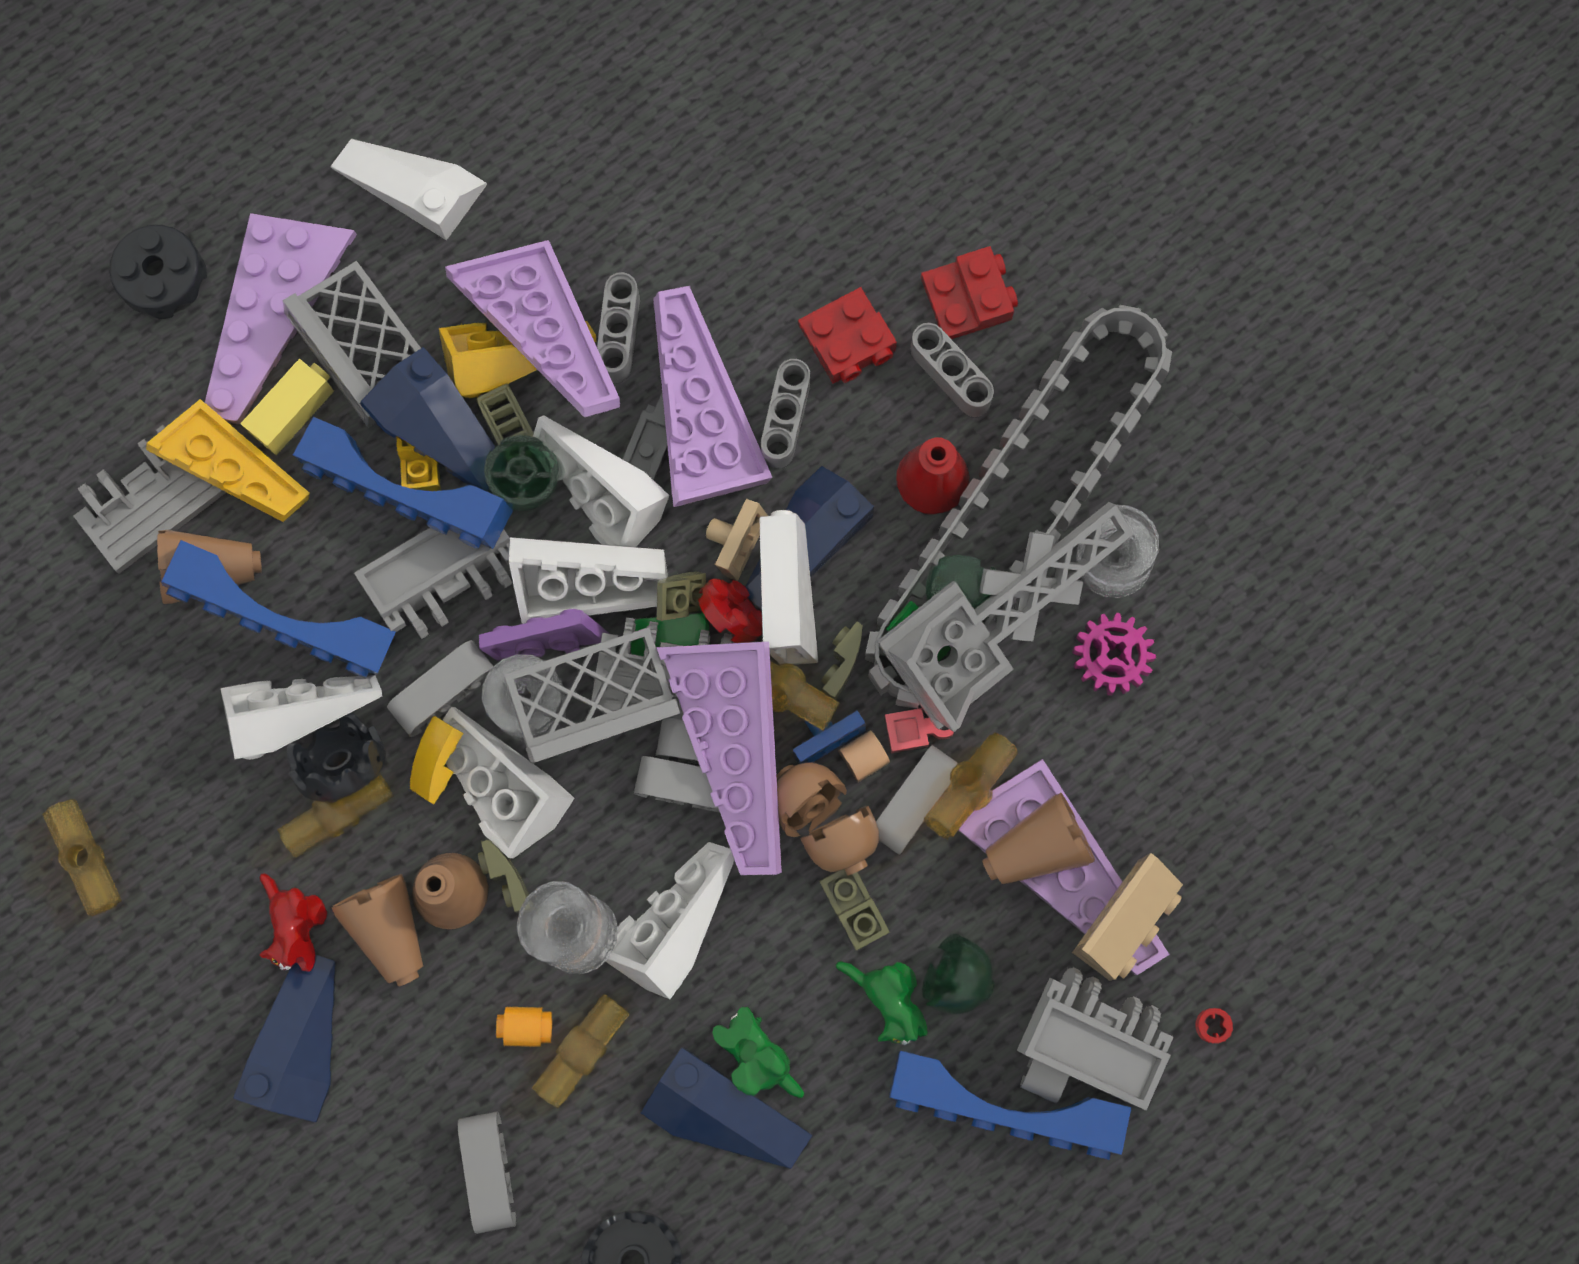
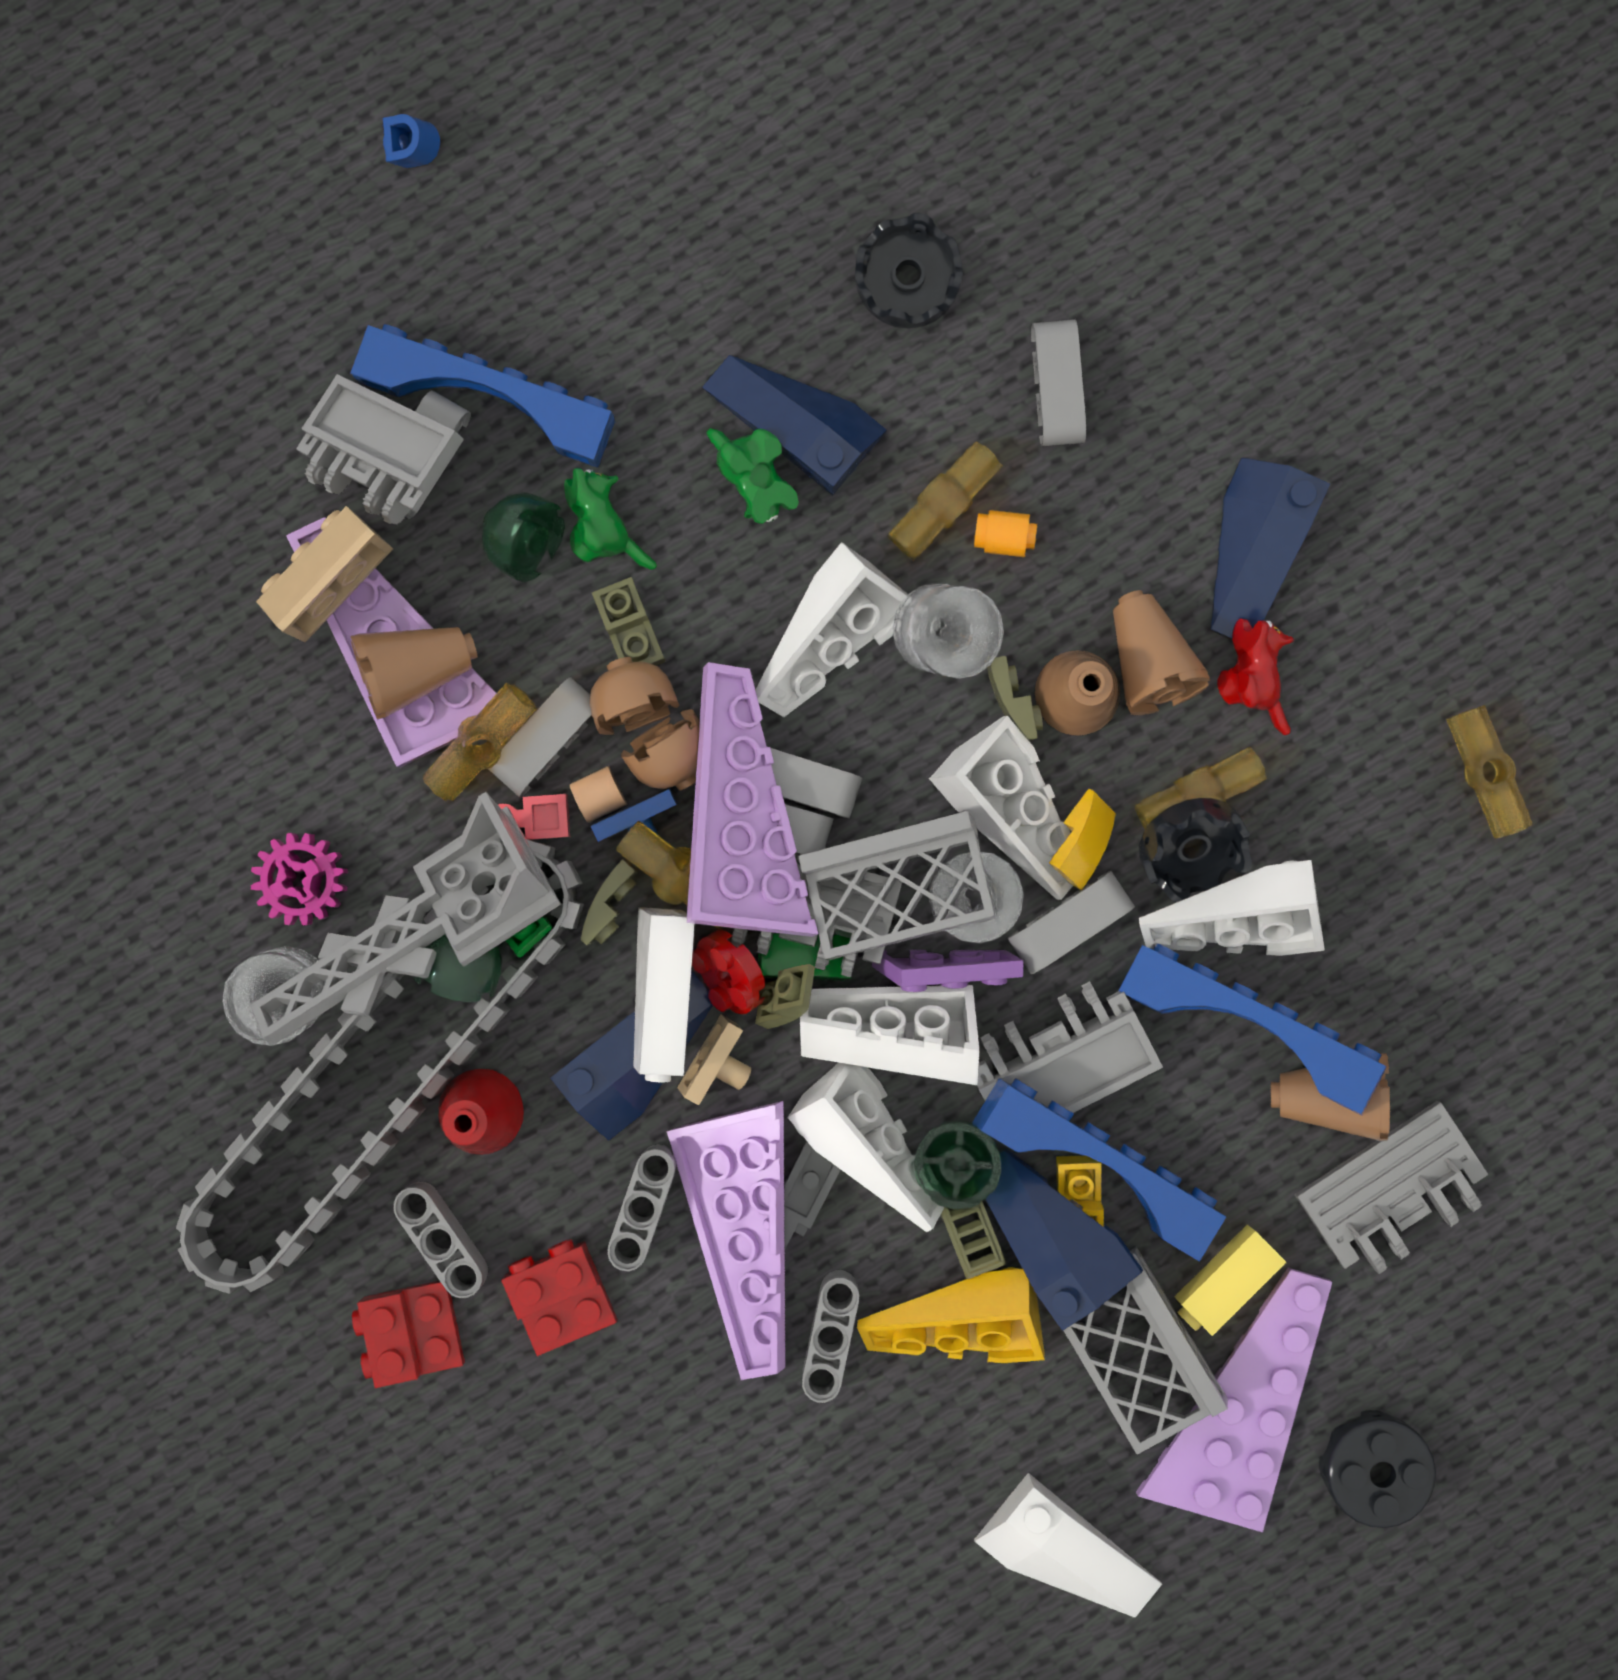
camera: 175 degrees left, 10 degrees up
(223, 457) = (1309, 1224): yellow wing -> none
(537, 312) = (925, 1364): lavender wing -> none
(1226, 1024) = (262, 454): red bush -> none

